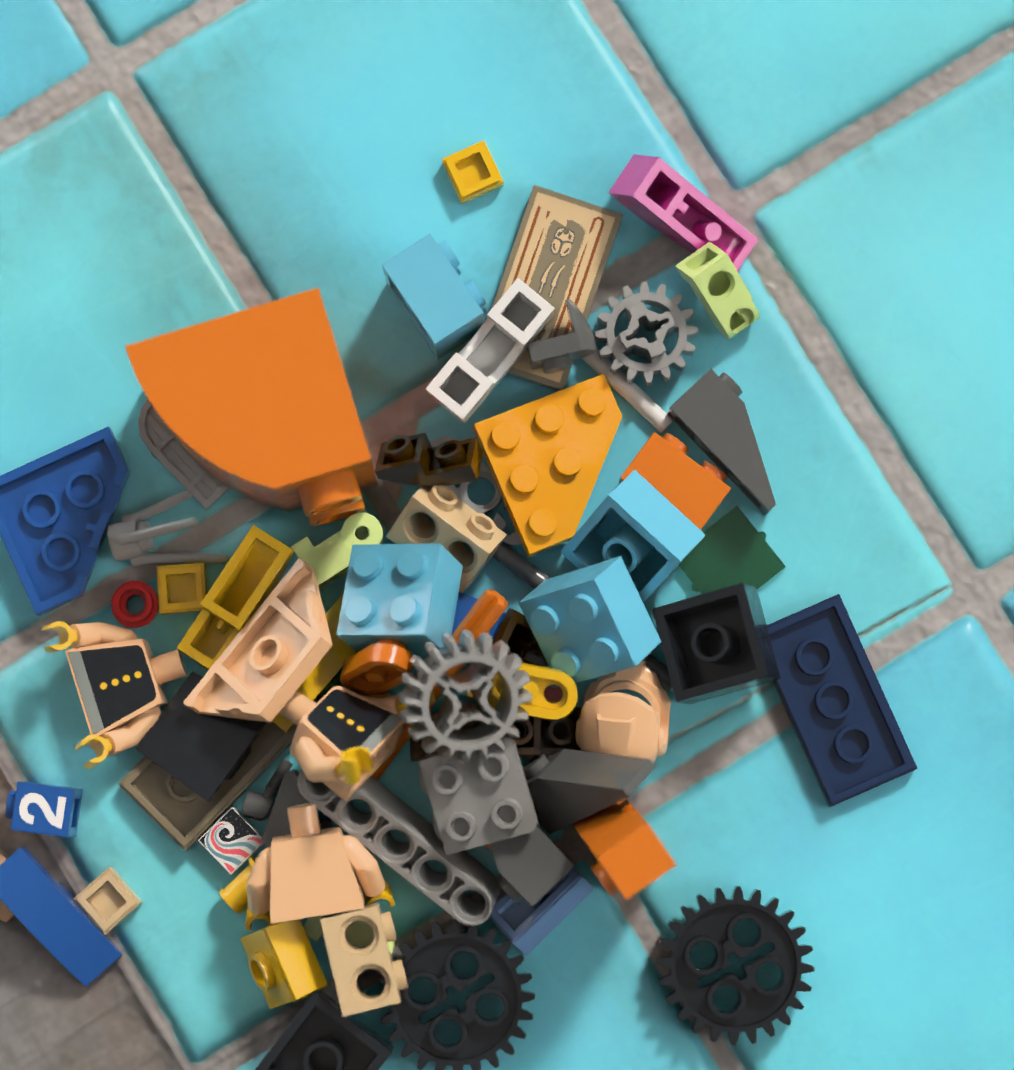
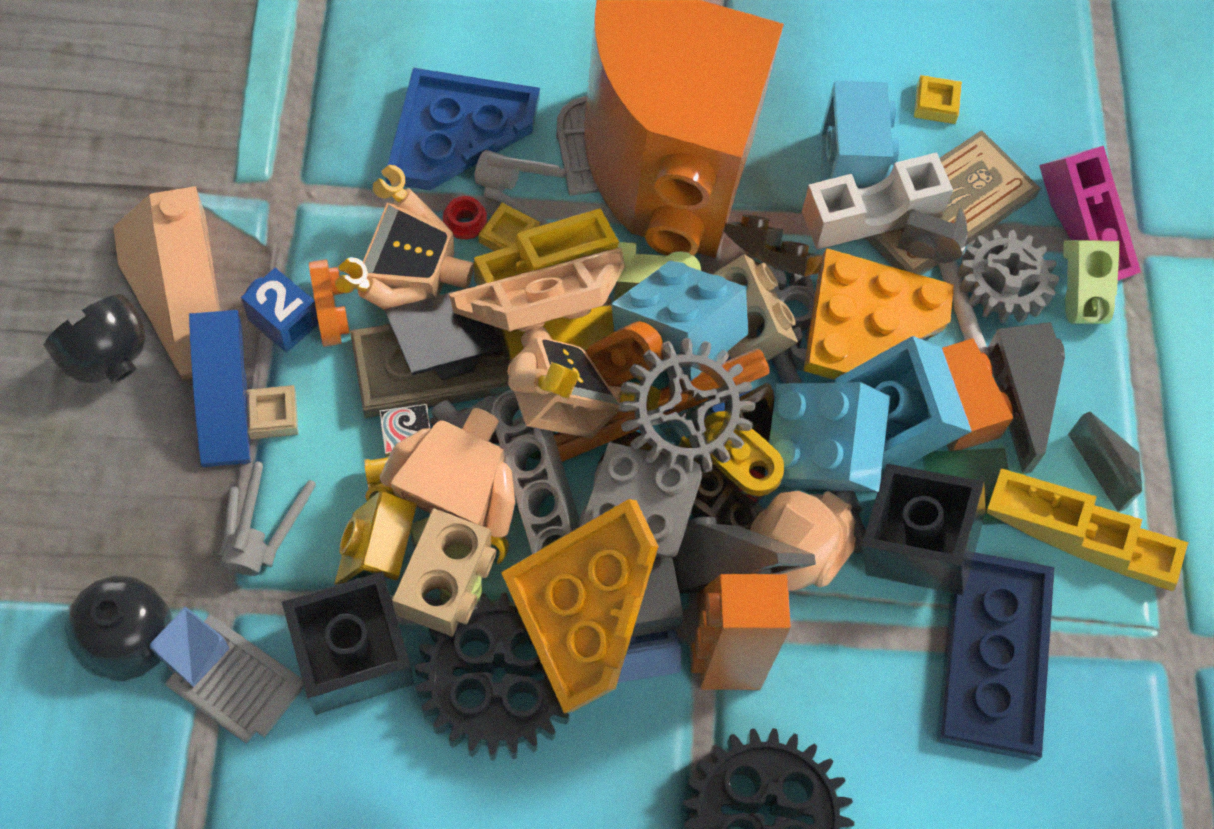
camera: 25 degrees right, 20 degrees down
(95, 787) = (331, 319): none -> orange plate
(176, 1034) = (244, 546): none -> light grey plant
(491, 910) = (585, 600): none -> light orange plate
(835, 456) = (1109, 458): none -> clear smoke slope
(846, 539) = (1087, 531): none -> yellow slope

